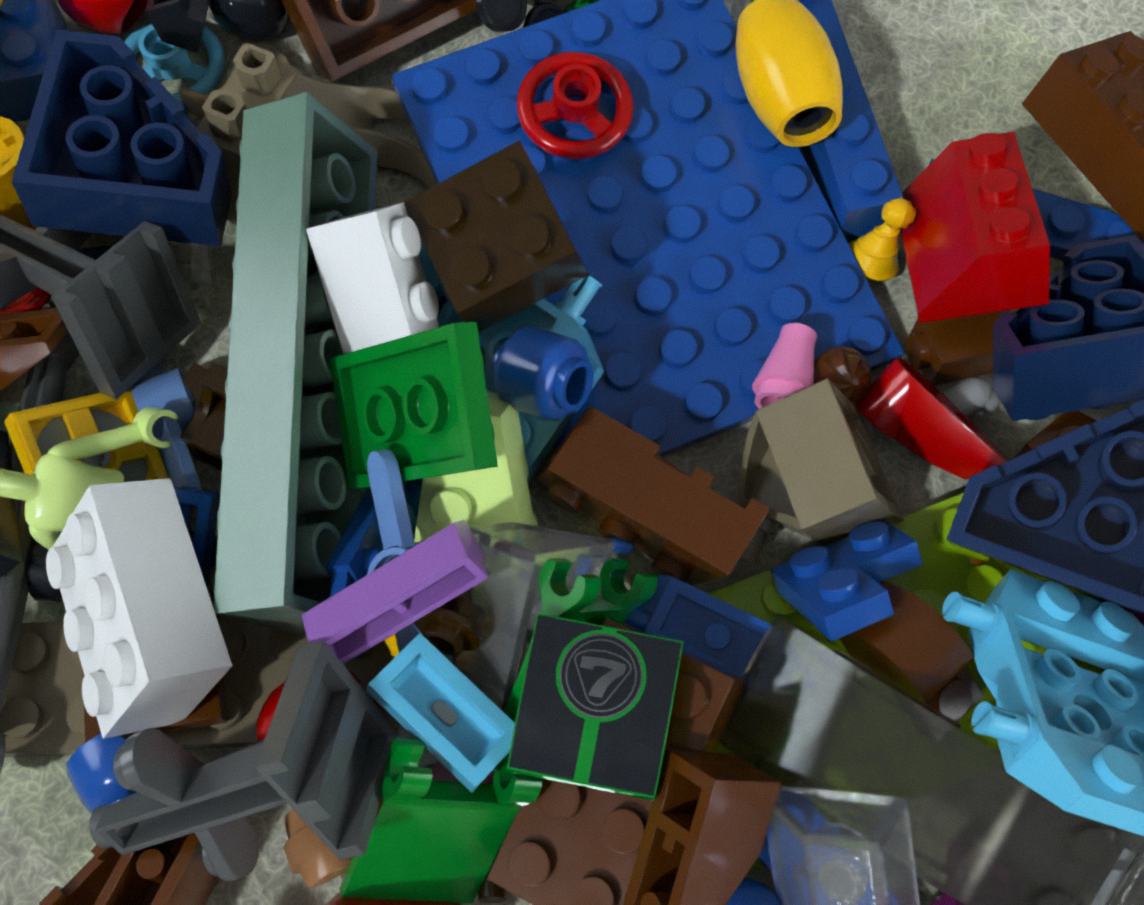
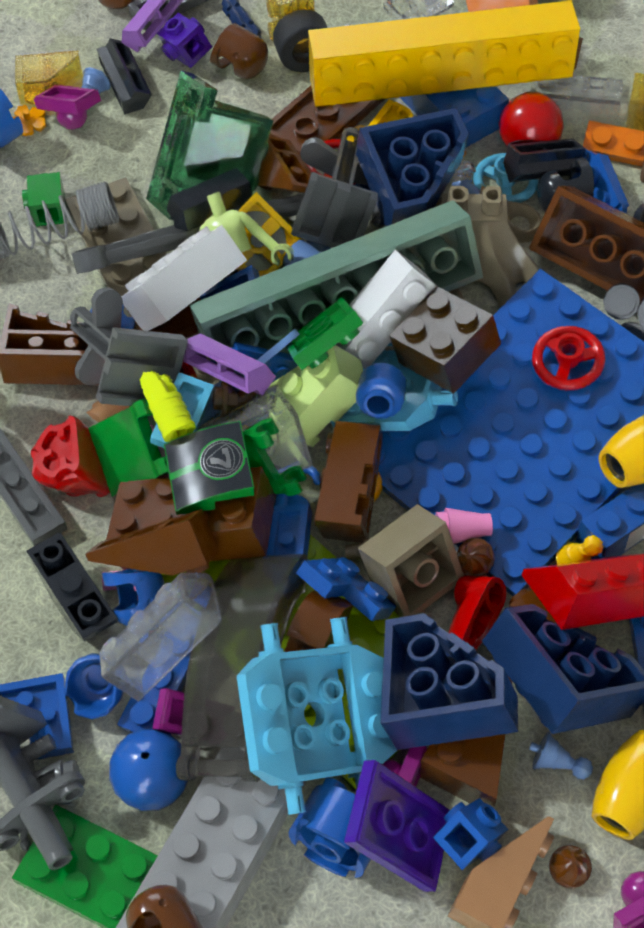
camera: 70 degrees right, 10 degrees down
(443, 731) = (166, 406): none -> neon yellow hinge

